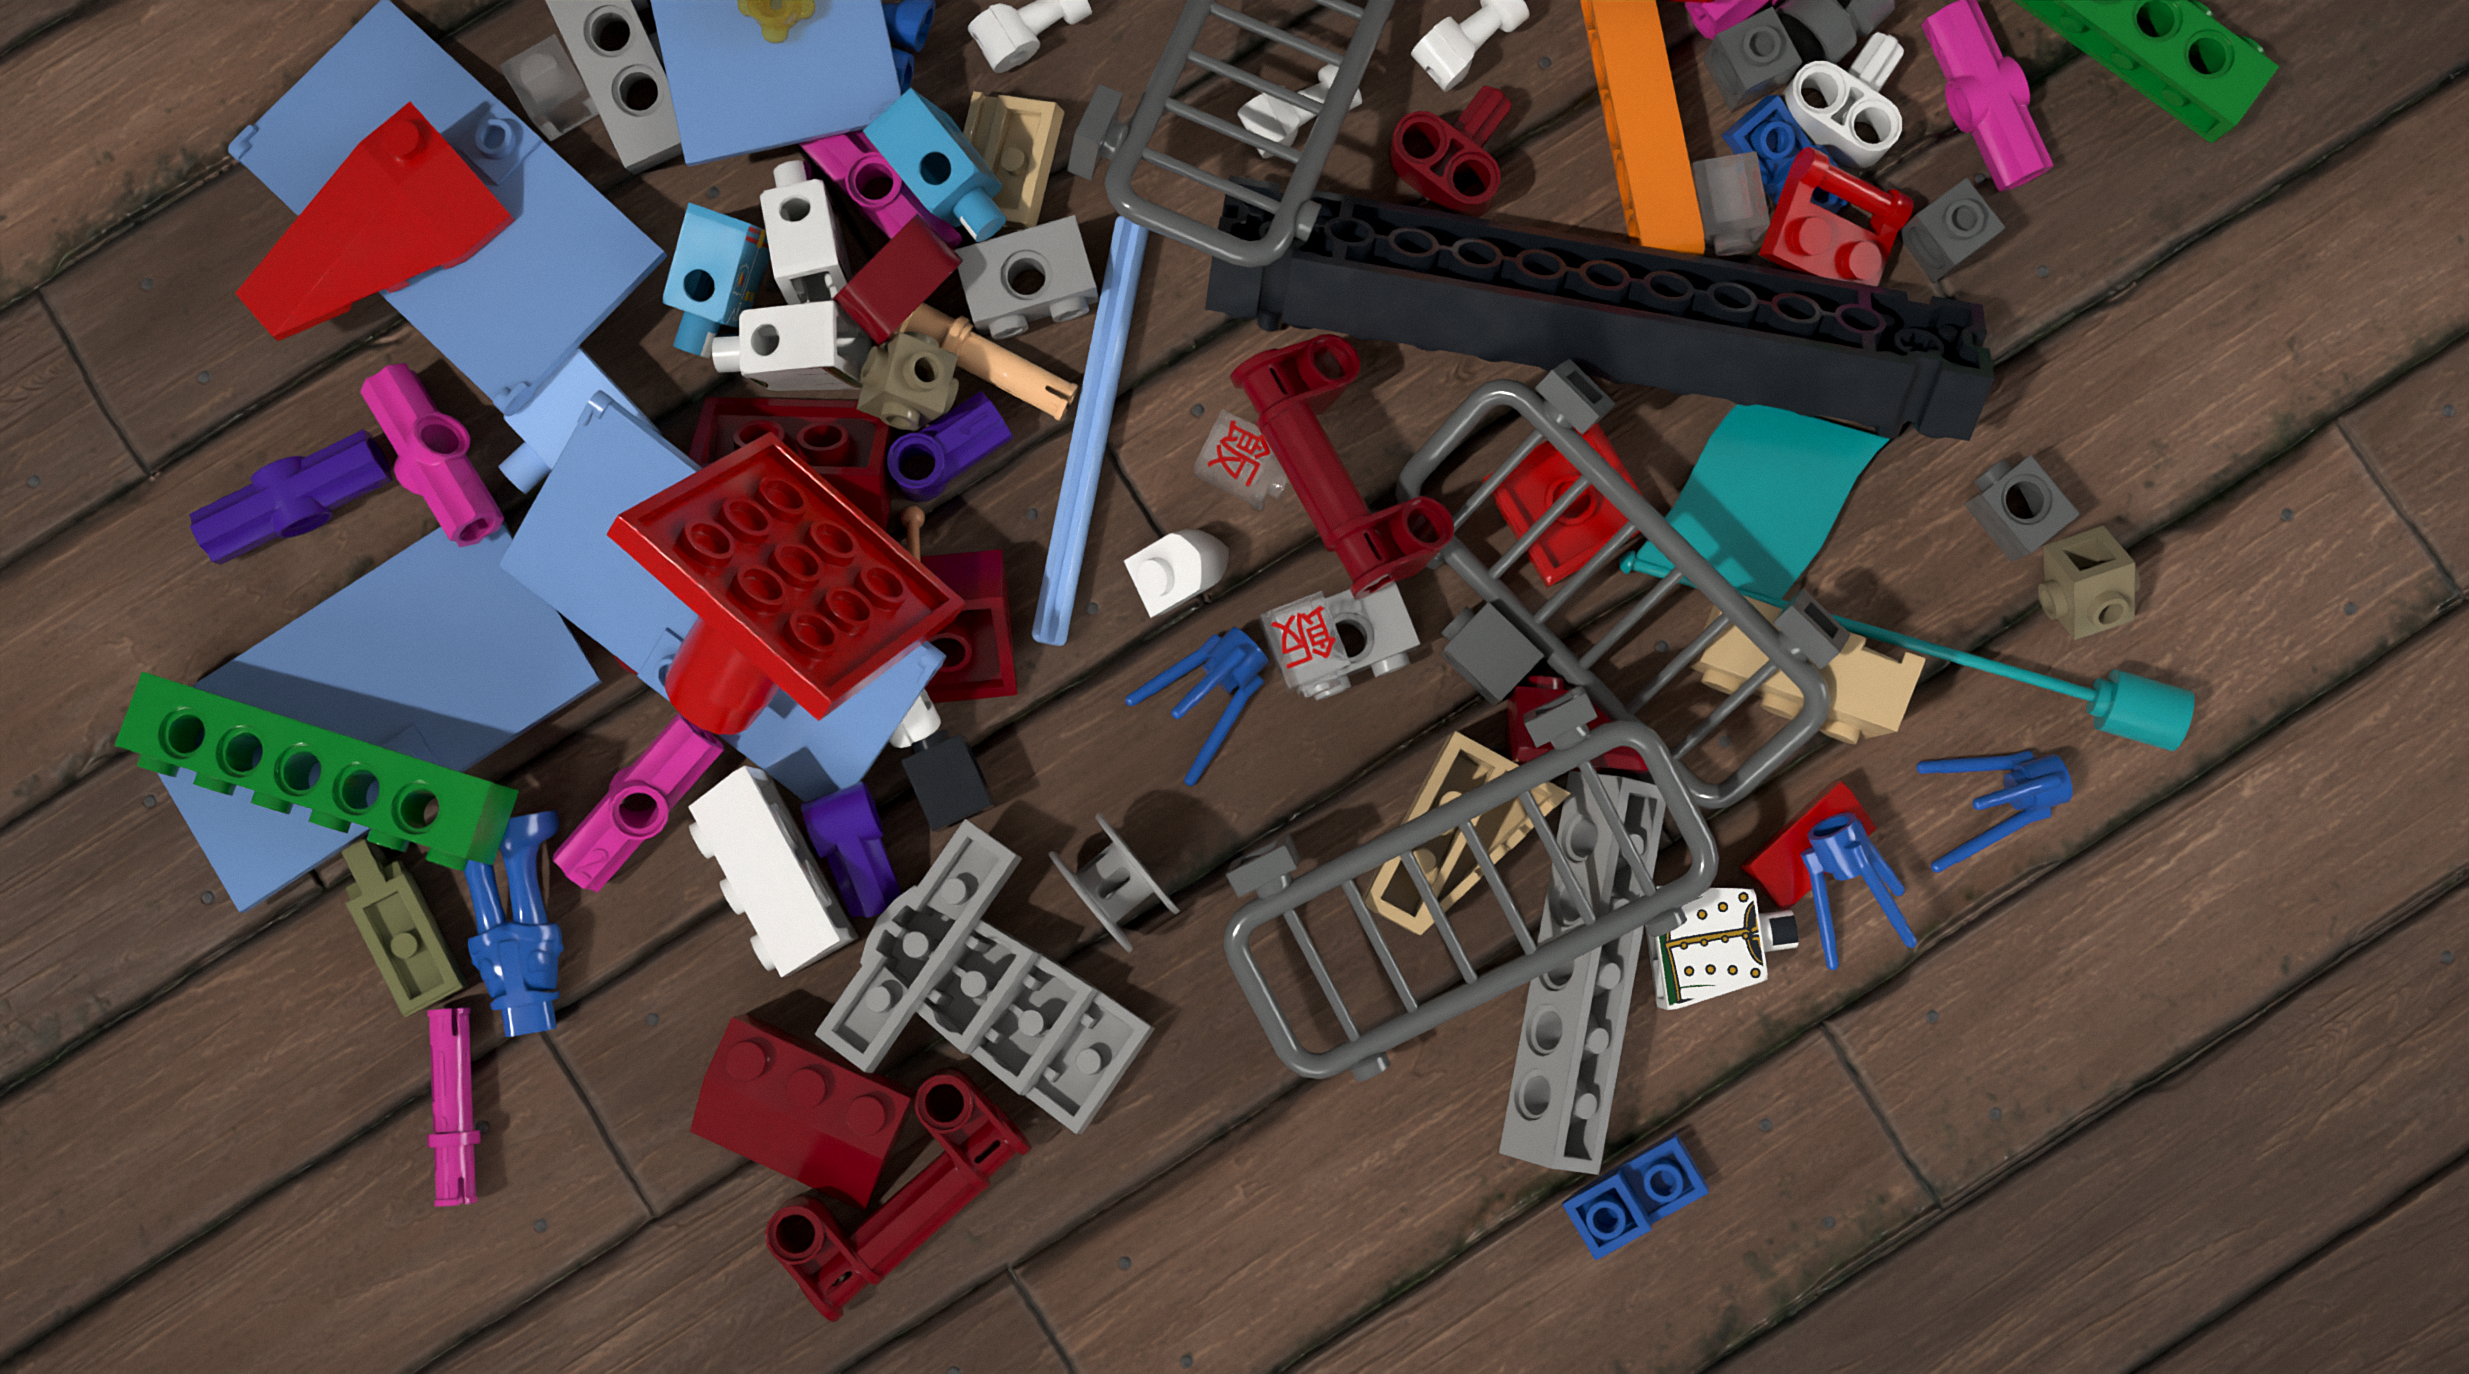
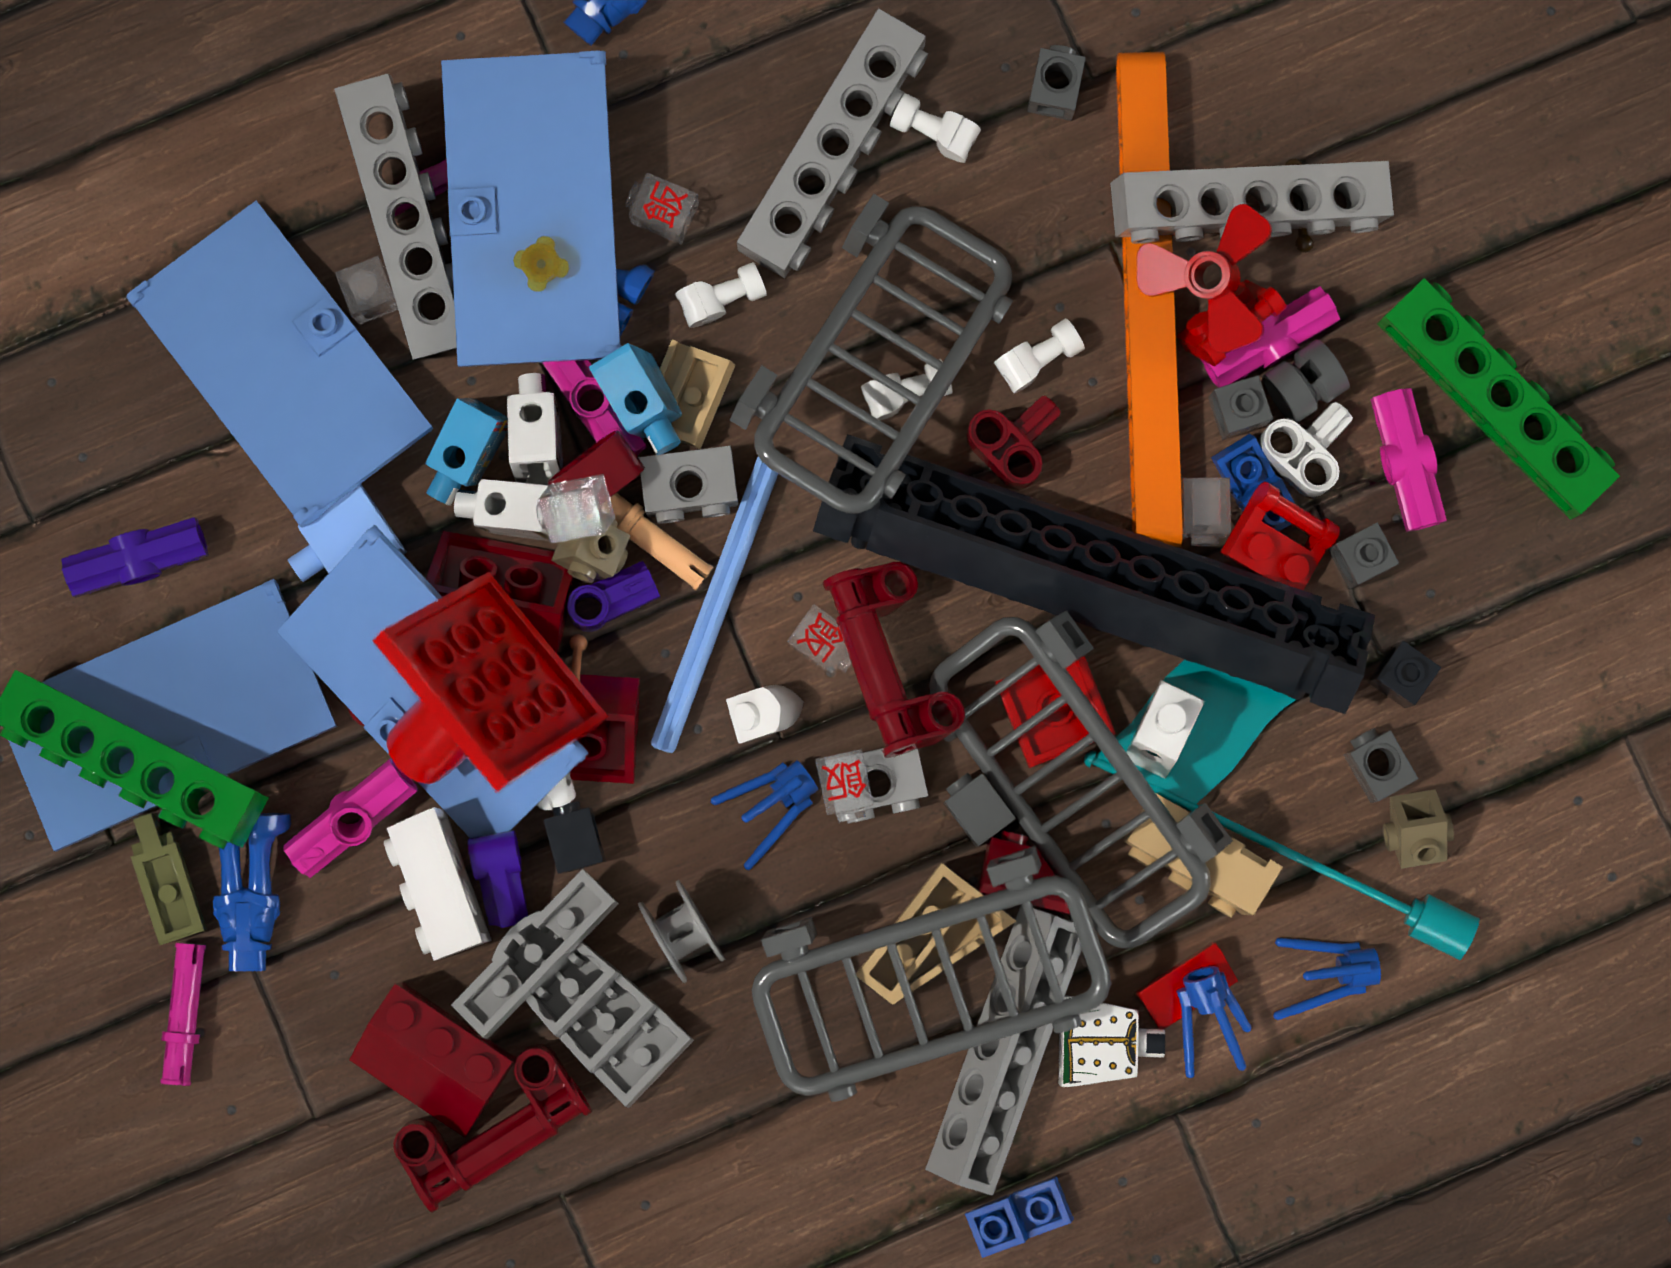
camera: 10 degrees right, 0 degrees up
(379, 220) = (233, 373): red wedge -> none
(432, 455) = (241, 544): dark pink piece -> none
(874, 323) = (575, 508): none -> clear brick
(1727, 498) = (1164, 728): none -> white torso
(2034, 379) = (1404, 674): none -> black brick

